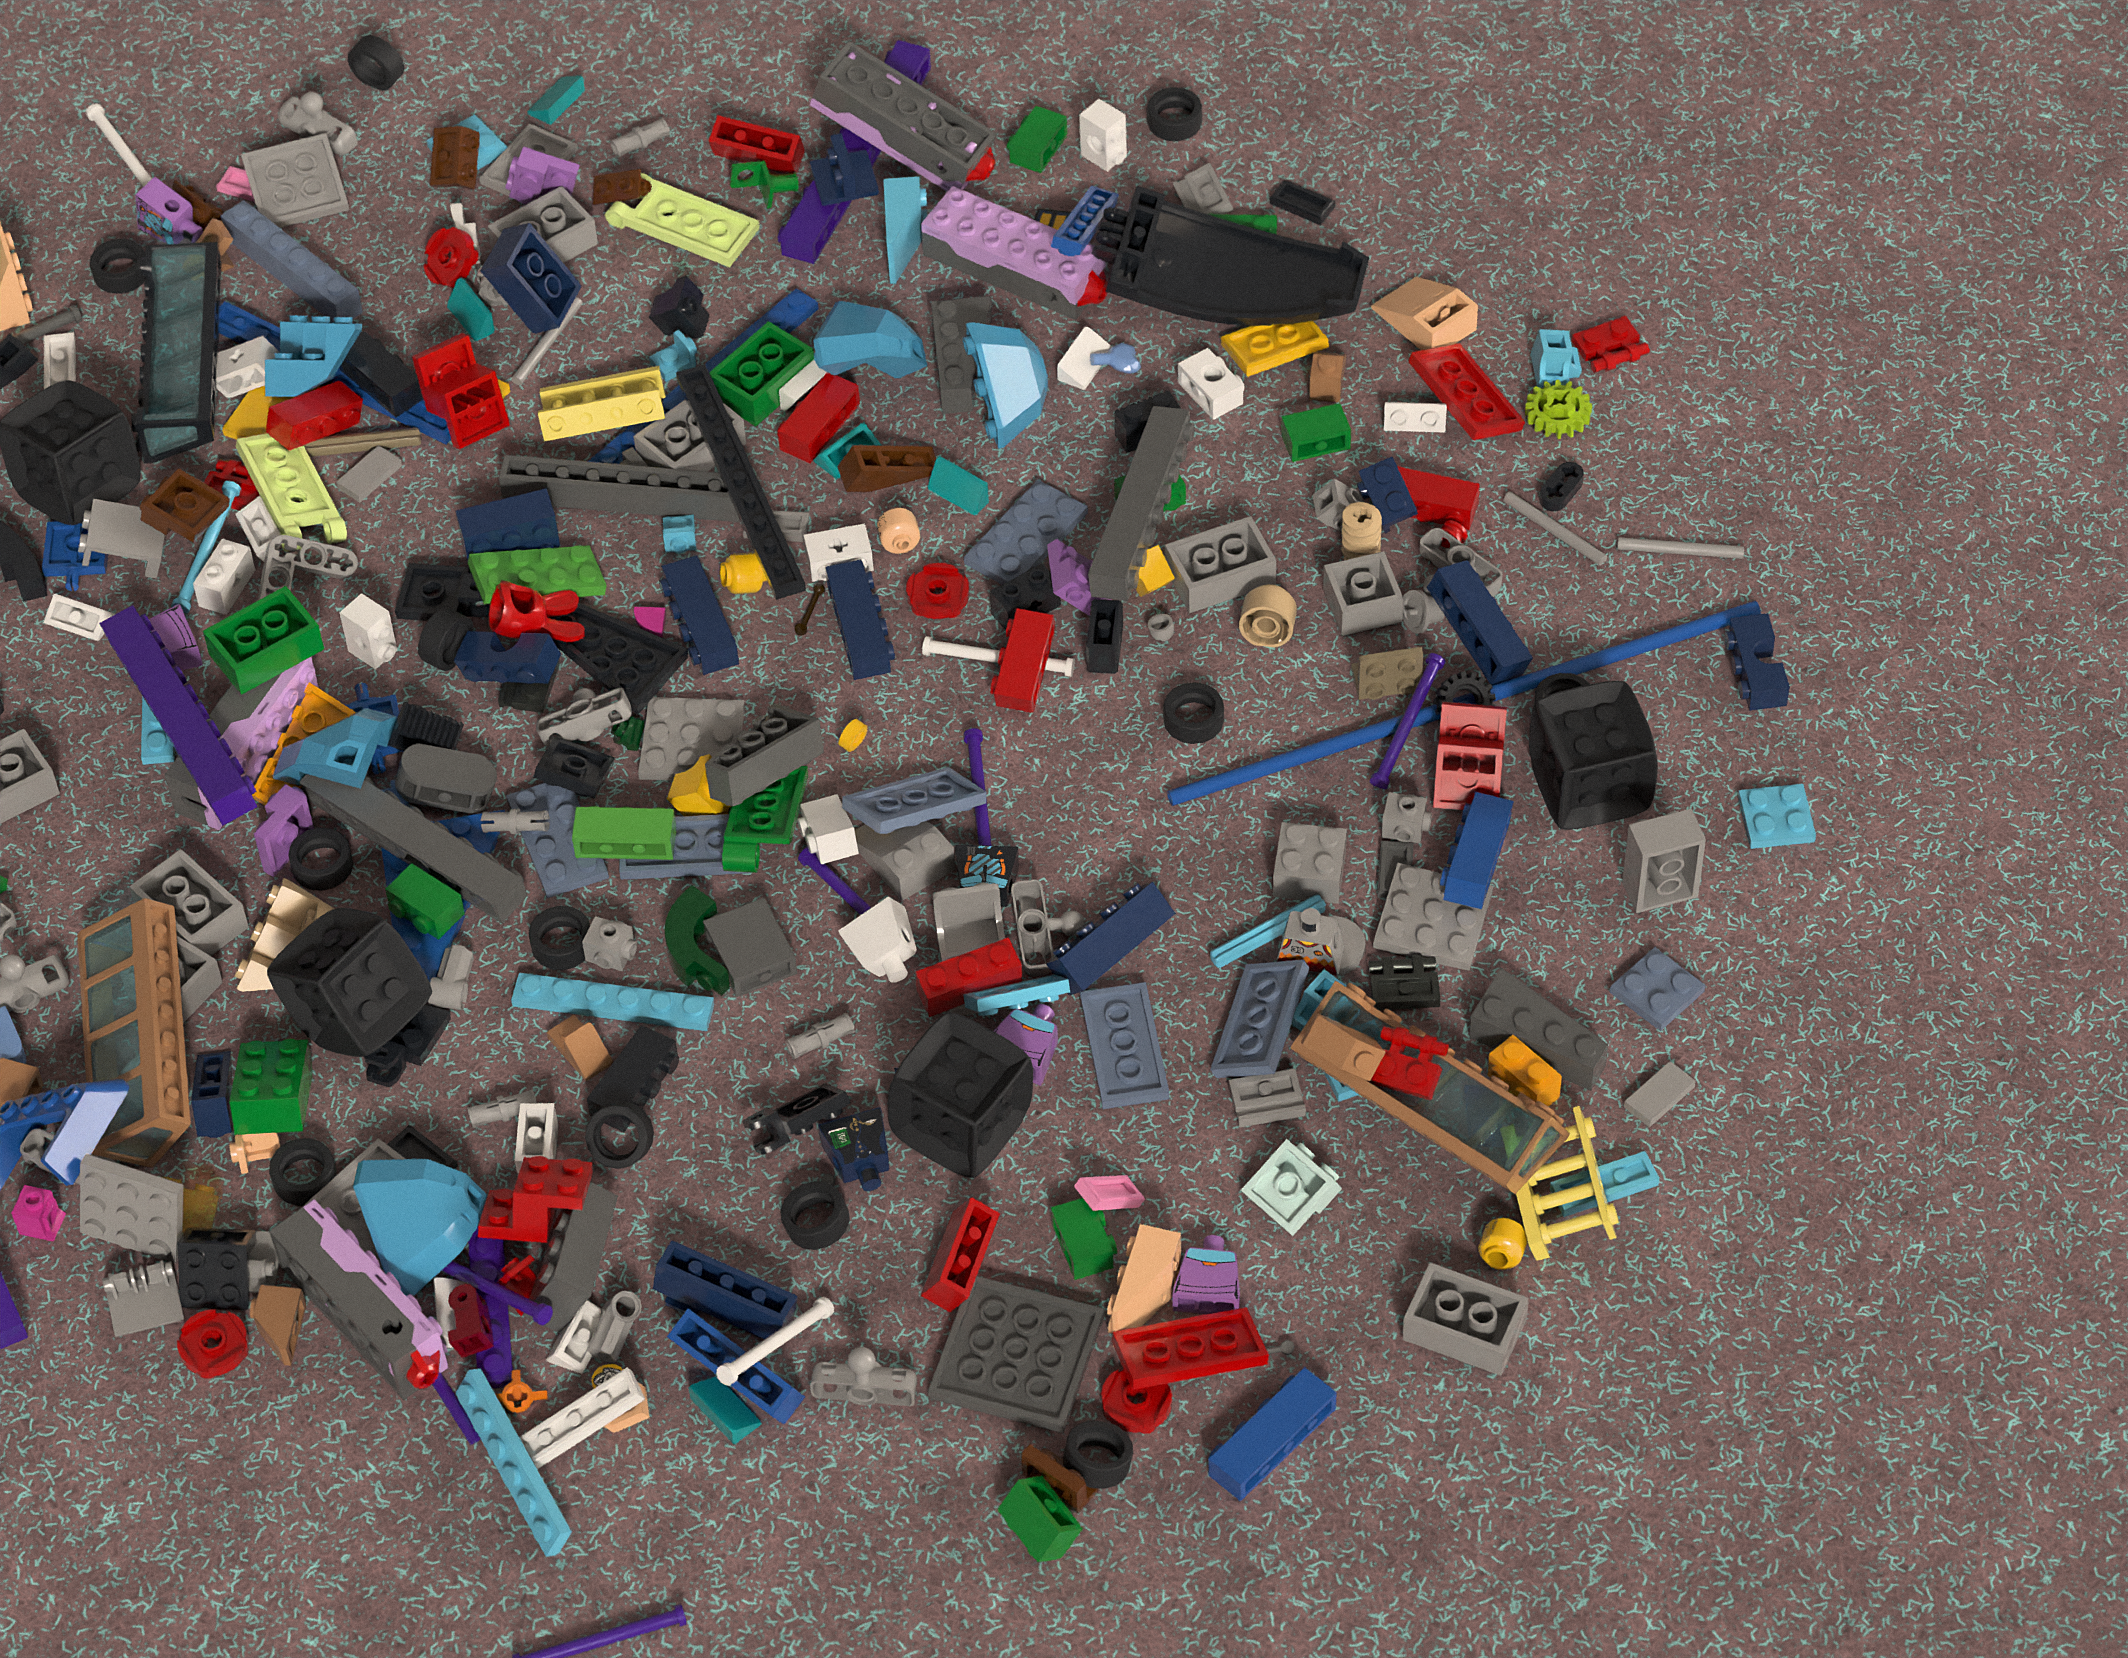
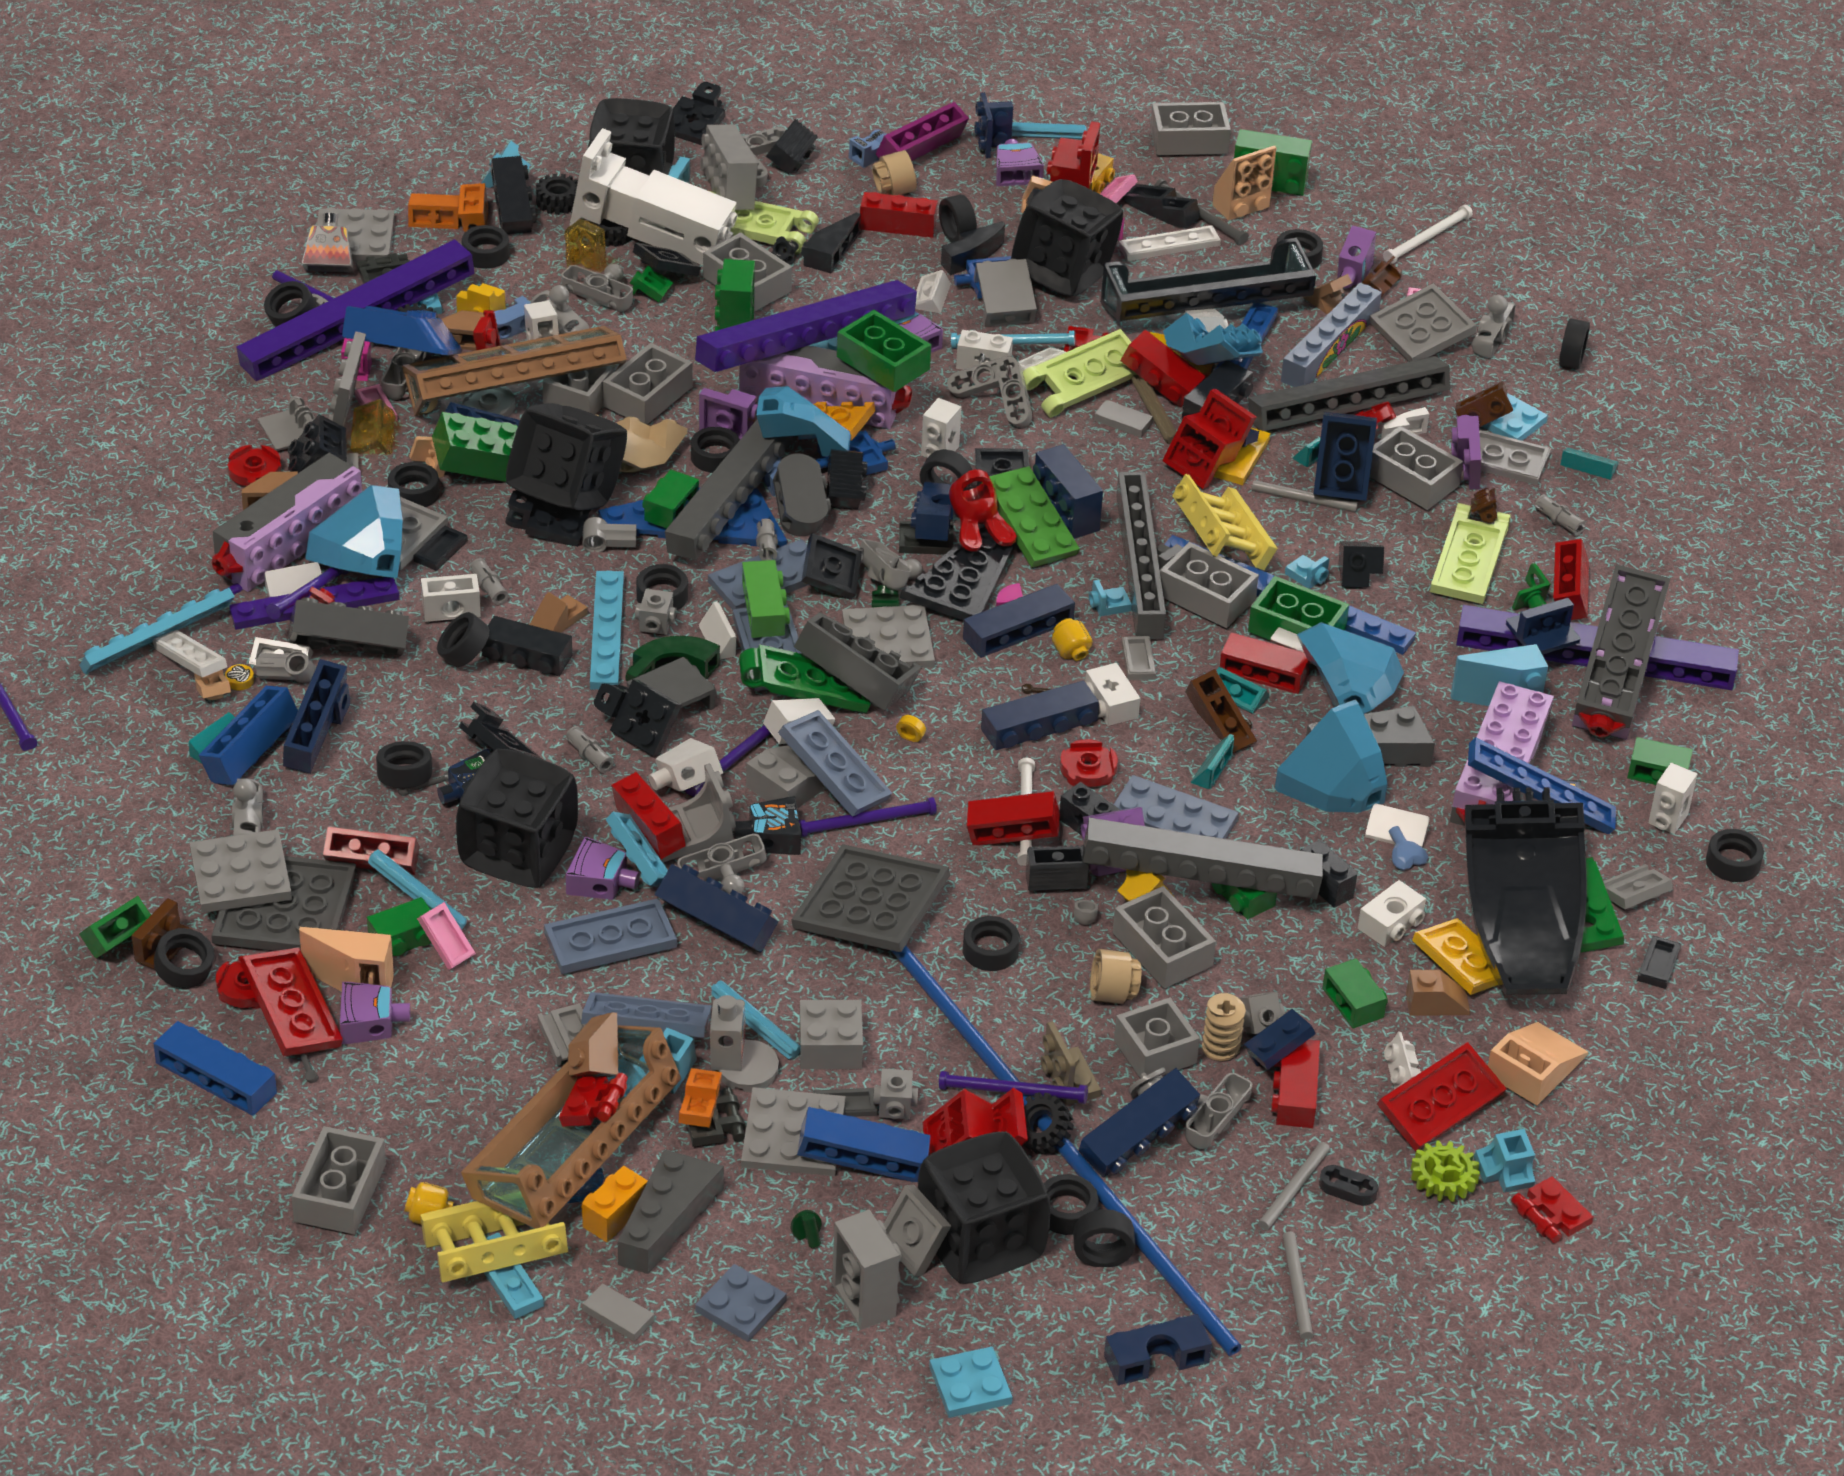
camera: 75 degrees right, 10 degrees down
(57, 999) = (540, 320): none -> white brick
(60, 1057) = (486, 331): none -> red plate
(87, 790) = (735, 293): none -> green brick
(183, 506) = (1034, 307): reddish brown plate -> none
(396, 265) = (1349, 393): none -> dark grey brick
(472, 1321) = (276, 582): dark red leg -> none
(519, 1391) = (221, 628): orange piece -> none
(532, 1205) = (383, 590): red bracket -> none
(649, 891) = (719, 631): none -> white slope
(729, 1372) = (265, 744): white bar -> none
(741, 482) = (1148, 604): black plate -> none
(775, 986) = (627, 708): none -> black plate
(898, 530) = (1147, 727): light nougat head -> none
(968, 1388) = (240, 871): none -> light grey plate
(1030, 1216) = (410, 884): none -> medium azure axle
(1115, 802) = (871, 897): none -> dark grey plate
(1292, 1186) = (472, 1057): light aqua plate -> none
(1386, 982) = (700, 1097): none -> orange slope
(1455, 530) = (1255, 1104): red bush -> none
(1570, 917) = (807, 1225): none -> dark green plate
(1598, 822) = (916, 1229): none -> light grey plate
(1627, 665) = (1104, 1254): none -> black tyre

